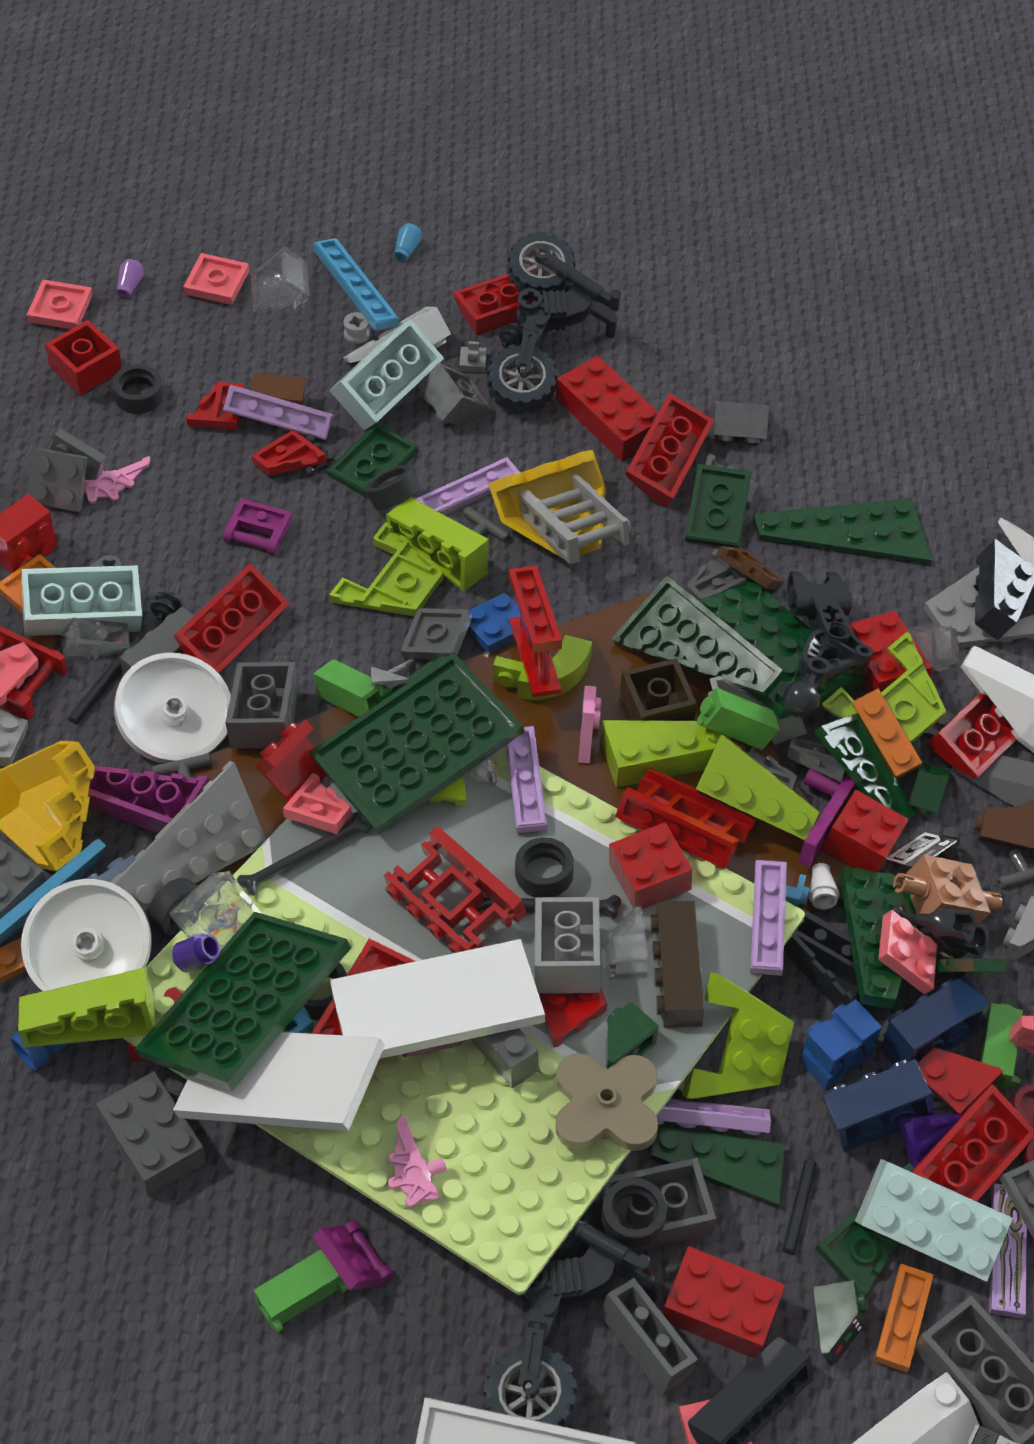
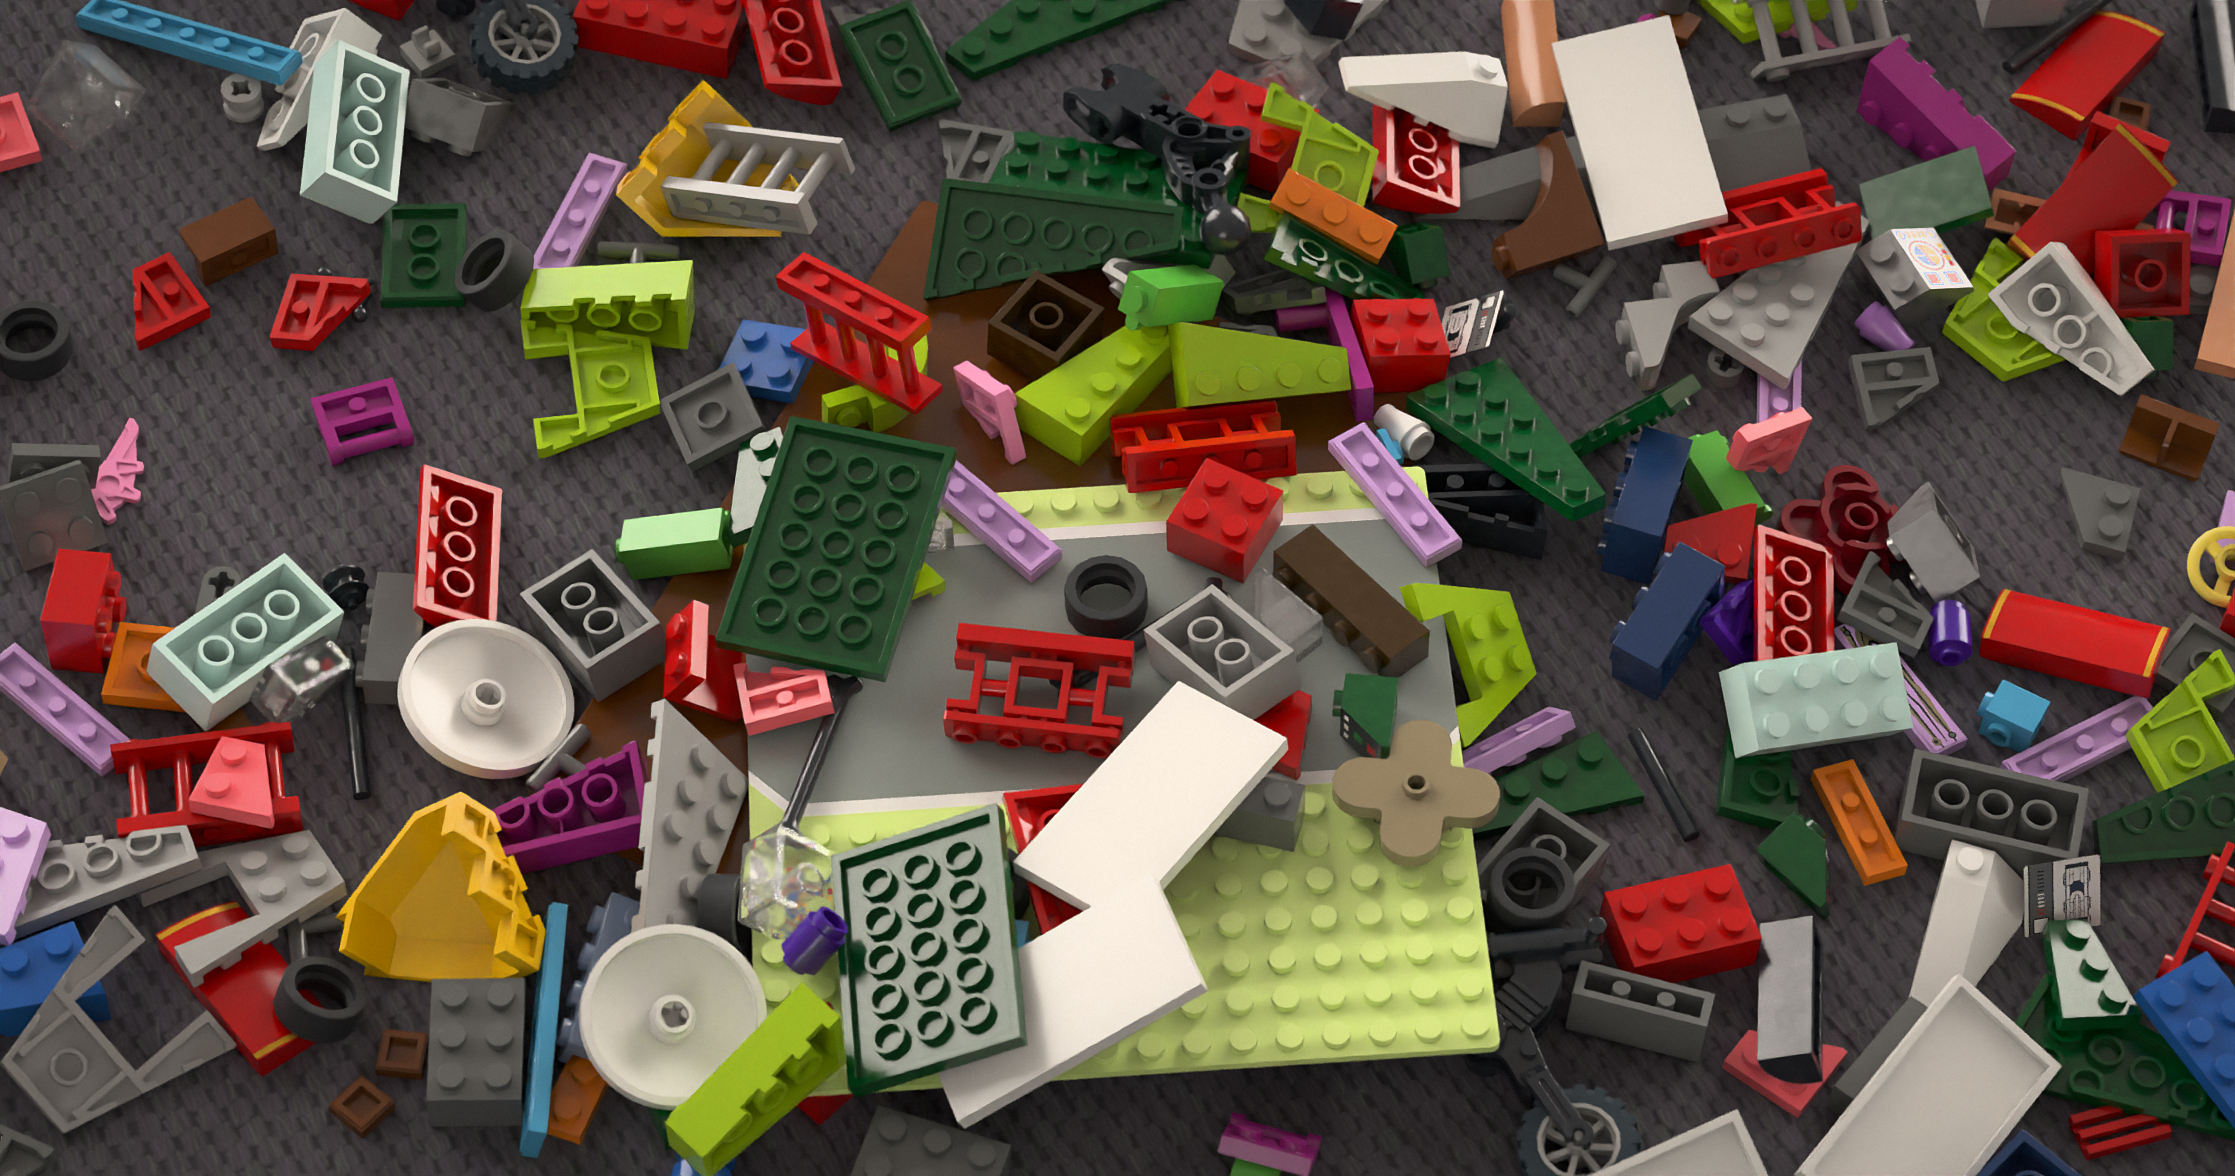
camera: 40 degrees left, 0 degrees up
(278, 412) = (254, 262): lavender tile -> none
(383, 677) = (713, 501): light grey piece -> none
(412, 1171) = (1273, 1003): bright pink piece -> none
(750, 566) = (1004, 116): reddish brown wing -> none
(839, 1043) = (1567, 585): blue brick -> none
(908, 952) = (1568, 437): coral plate -> none
(946, 884) = (1541, 355): nougat brick -> none
(952, 930) = (1582, 394): black animal -> none

